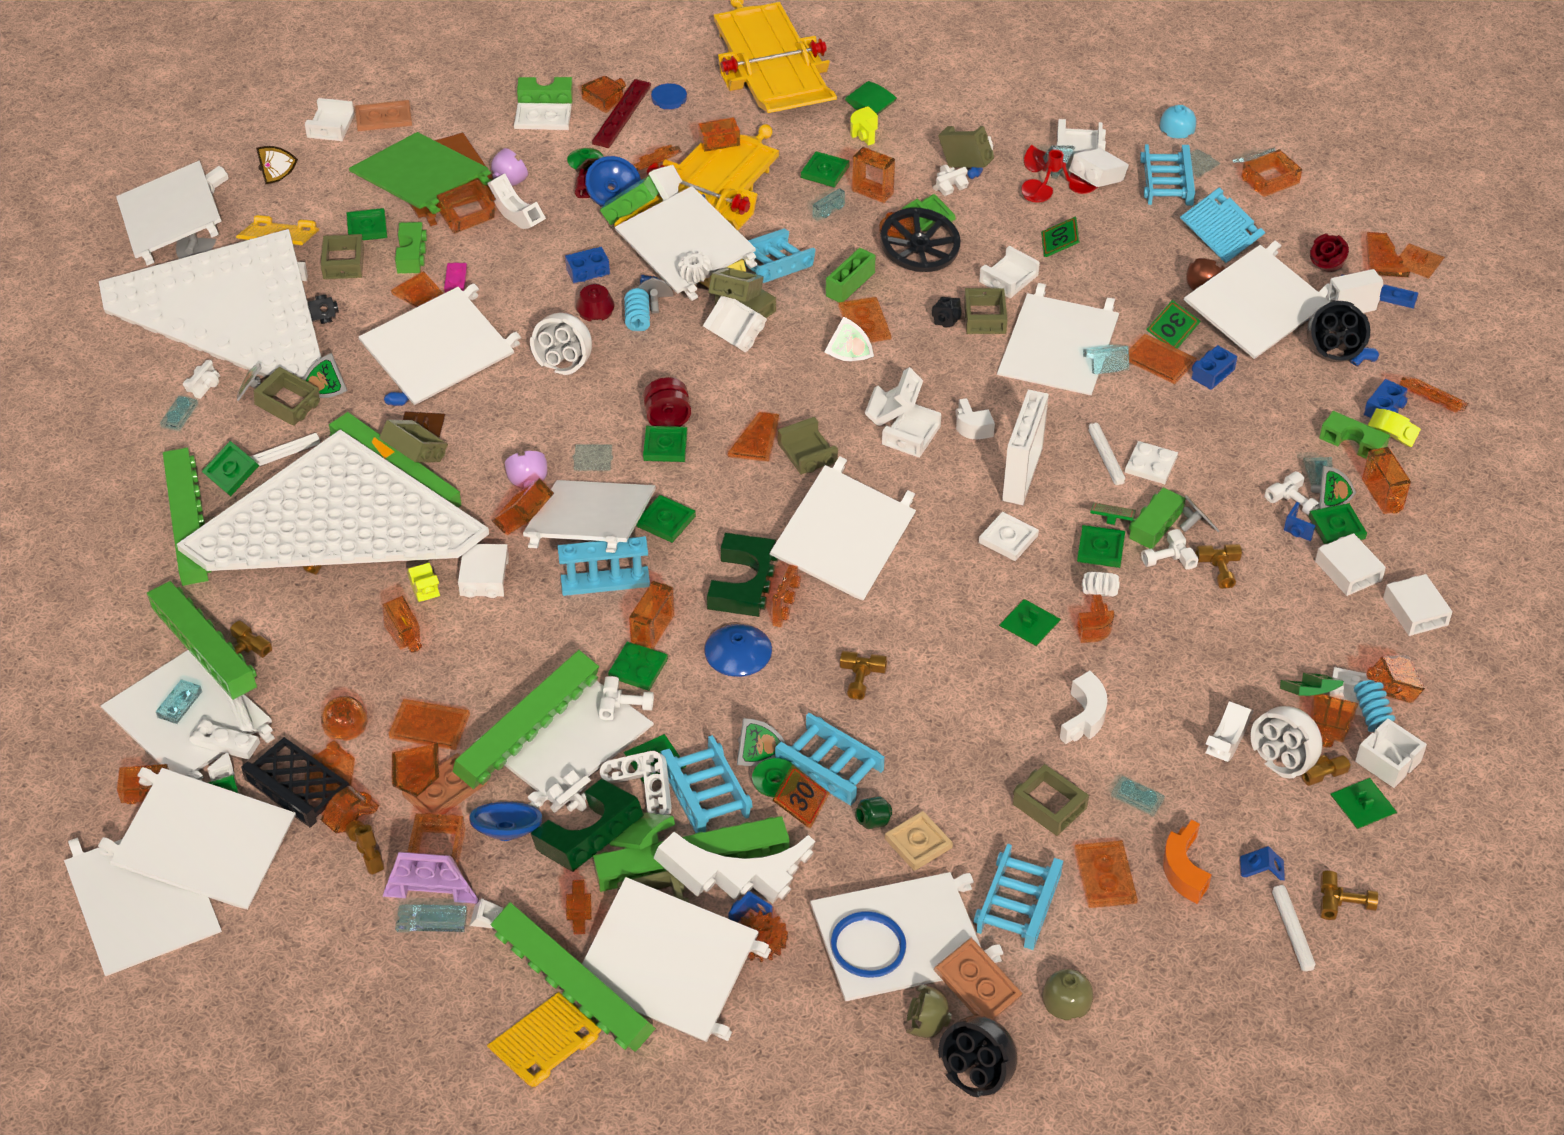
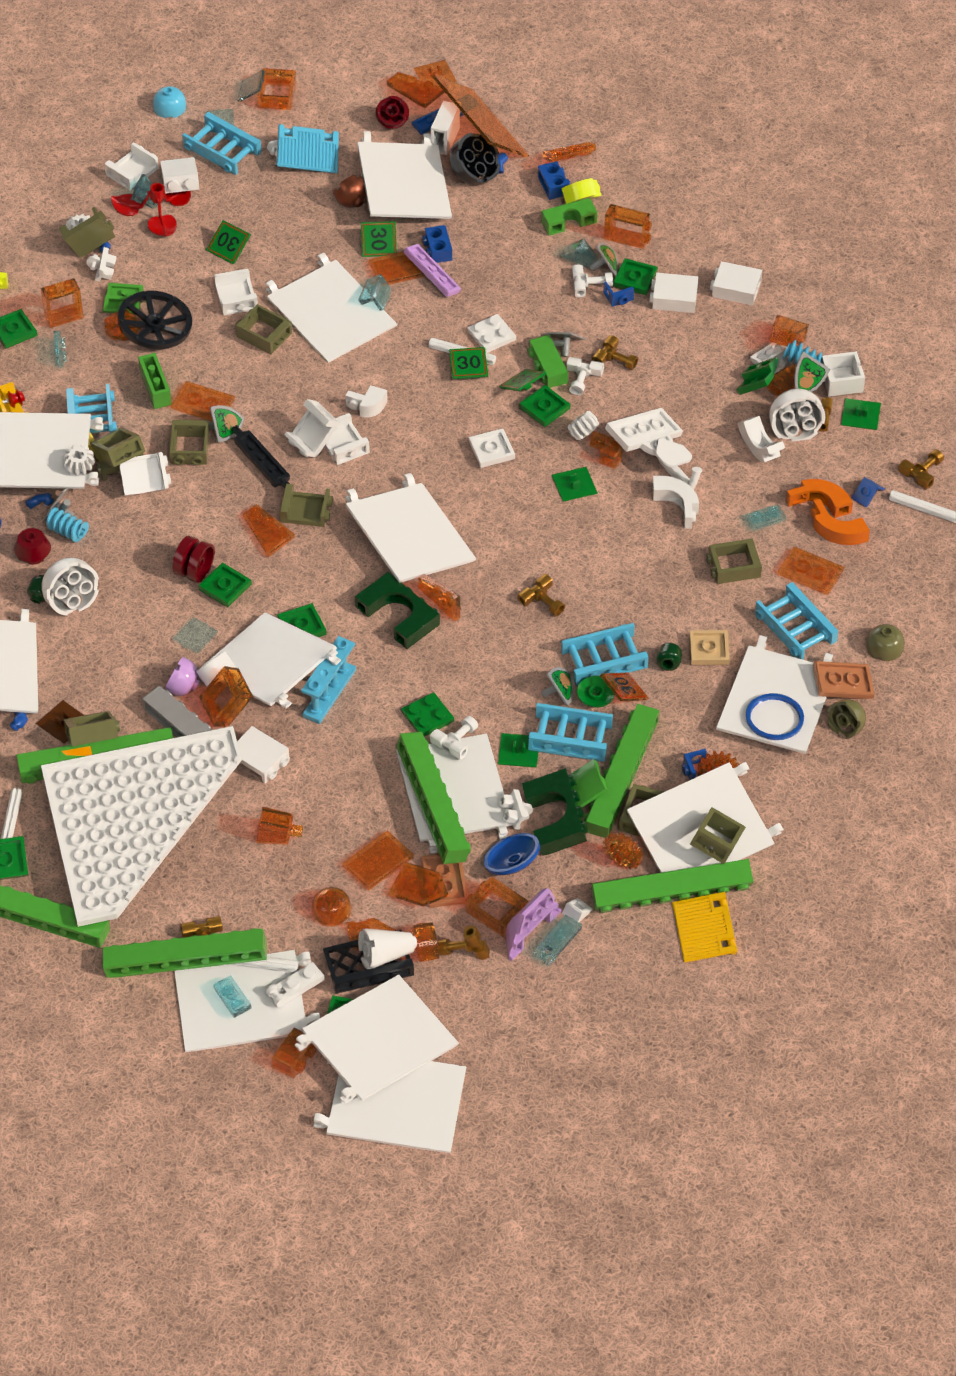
camera: 55 degrees left, 5 degrees up
(221, 768) = (321, 998): white slope -> none
(305, 775) = (384, 946): none -> white cone
(423, 582) = (239, 796): neon yellow brick -> none
(482, 488) = (173, 713): none -> light grey brick
(552, 478) = (211, 669): none -> white brick
(629, 979) = (721, 848): none -> olive window
(644, 770) = (534, 756): white beam -> none
(652, 615) = (398, 678): clear orange window -> none
(735, 876) = (654, 765): white arch -> none
(738, 650) = (460, 652): blue dish -> none
(801, 322) = (181, 428): none -> olive window
(836, 389) = (261, 457): none -> black plate
(947, 311) = (246, 350): black brick -> none
(982, 1043) = (899, 700): black cylinder -> none
(1025, 447) = (425, 357): white window -> none
(1093, 463) = (468, 363): none -> green piece
(1138, 644) = (654, 434): none -> white plate
(1177, 380) = (432, 270): none -> lavender tile
(1216, 822) = (830, 494): none -> orange arch
(1346, 718) = (809, 373): none -> shield
(1393, 307) = (480, 116): none -> clear orange piece

